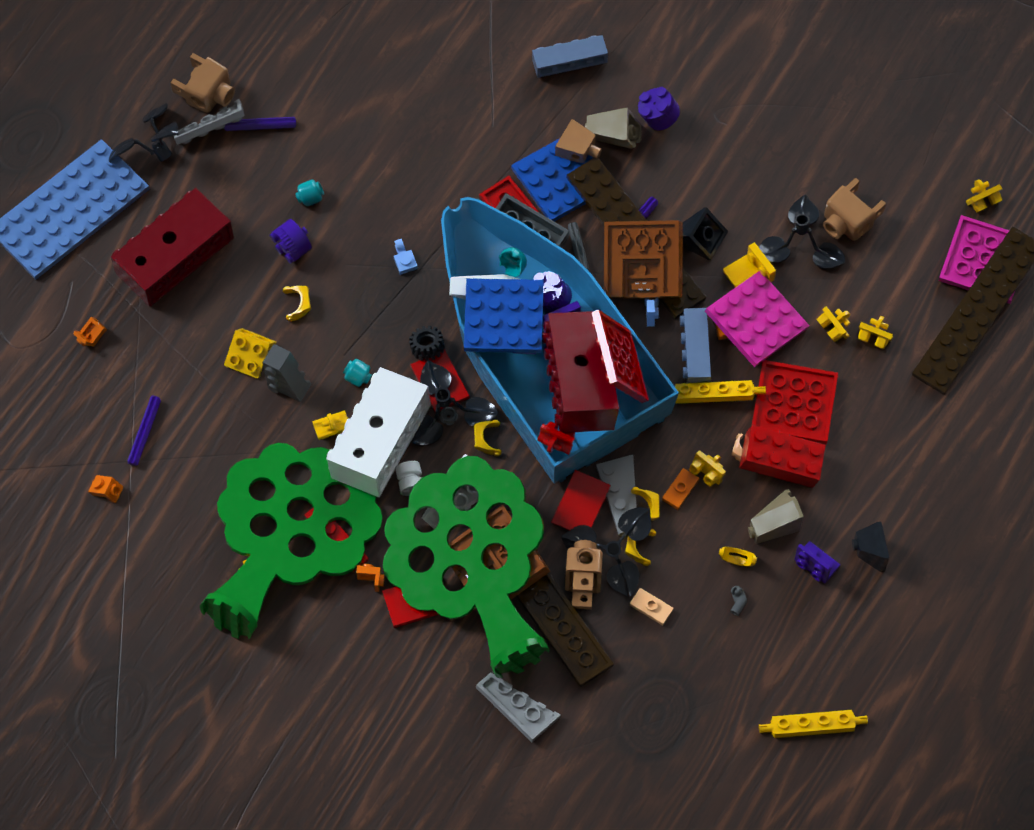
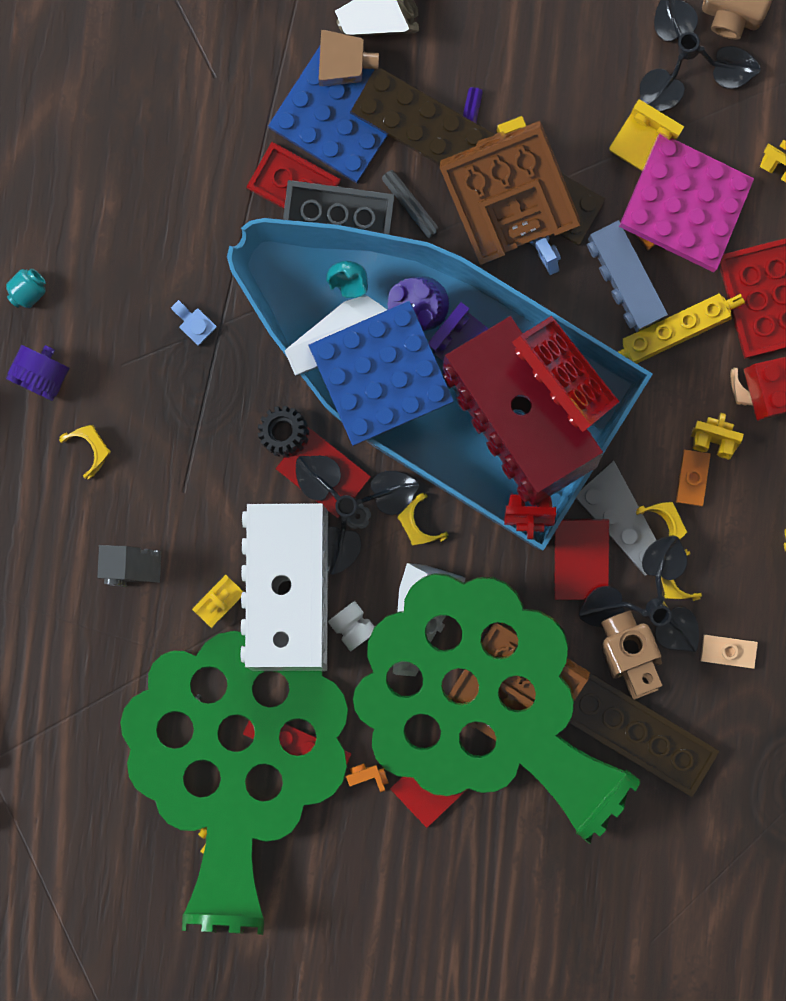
camera: 30 degrees left, 20 degrees up
(248, 352) = (61, 547): yellow bracket -> none
(357, 372) = (214, 513): teal head -> none
(523, 712) = (634, 861): light grey wing -> none
(703, 233) = (562, 111): black slope -> none

